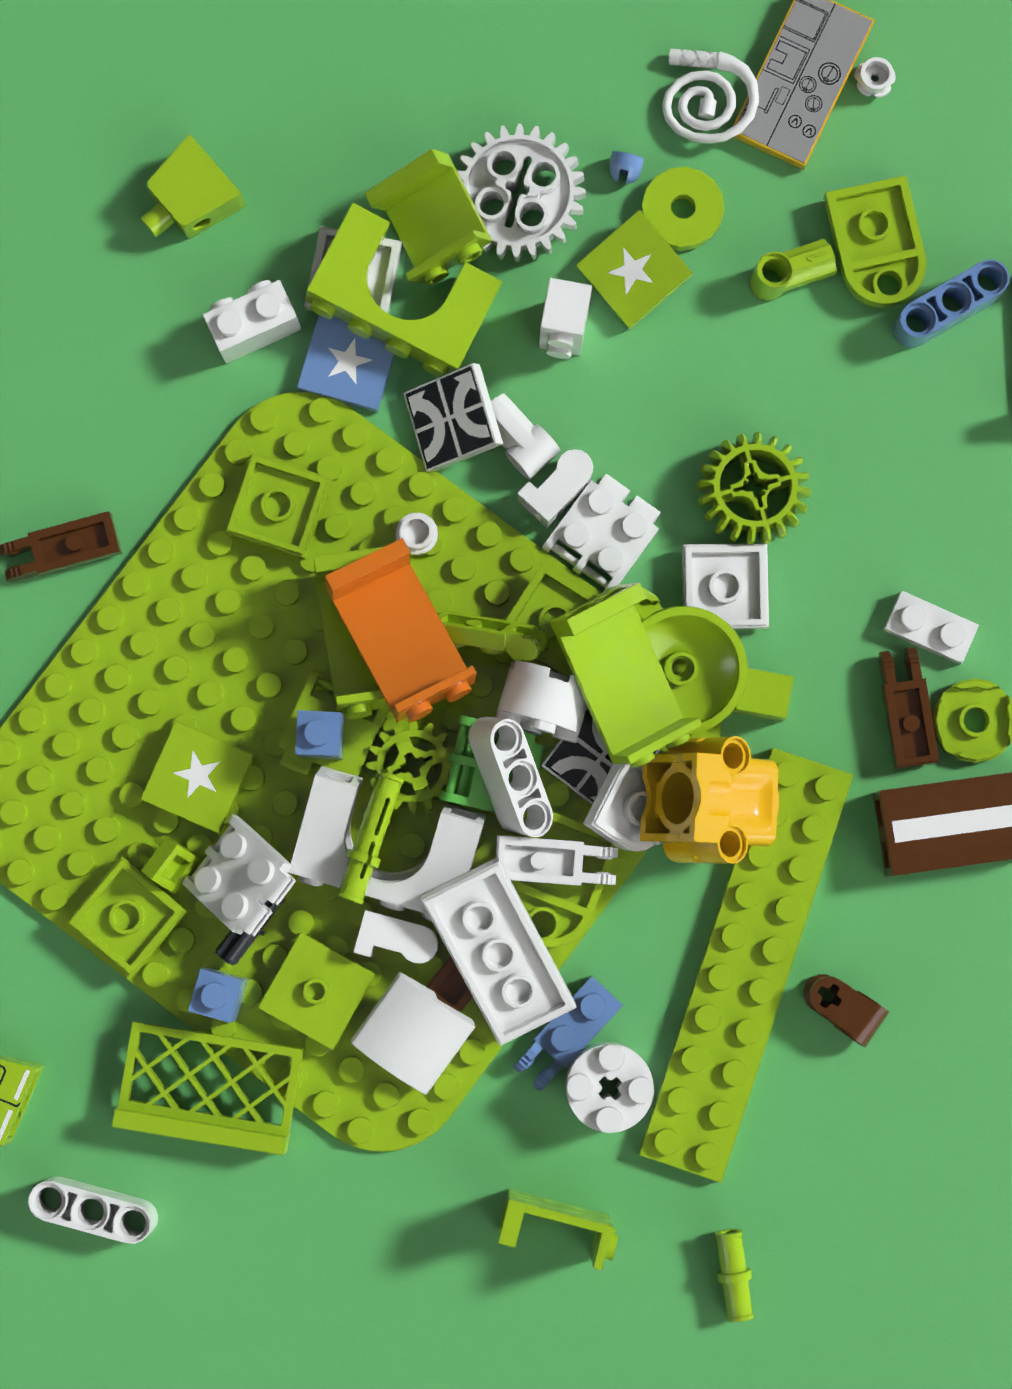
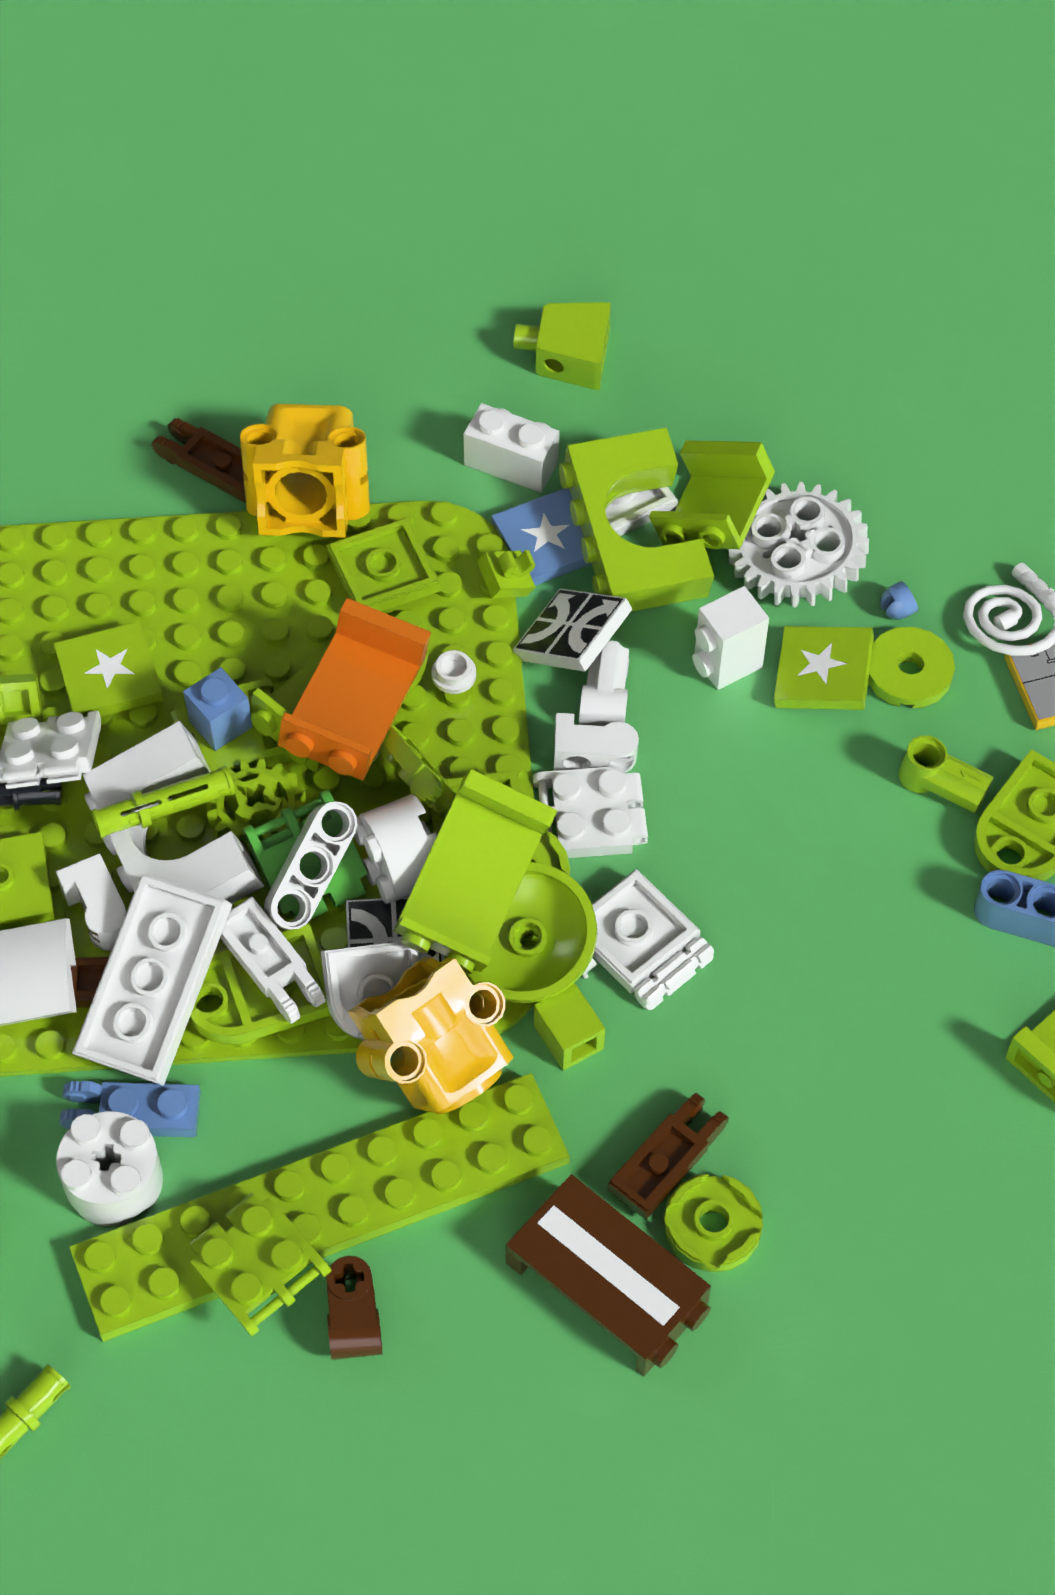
camera: 50 degrees right, 25 degrees down
(152, 495) = (305, 470): none -> yellow piece
(363, 422) = (507, 573): none -> lime tile
(749, 469) = (741, 909): lime gear -> none
(766, 1047) = (255, 1260): none -> lime plate
(779, 587) = (674, 973): none -> white axle
(930, 627) = (759, 1121): white plate -> none

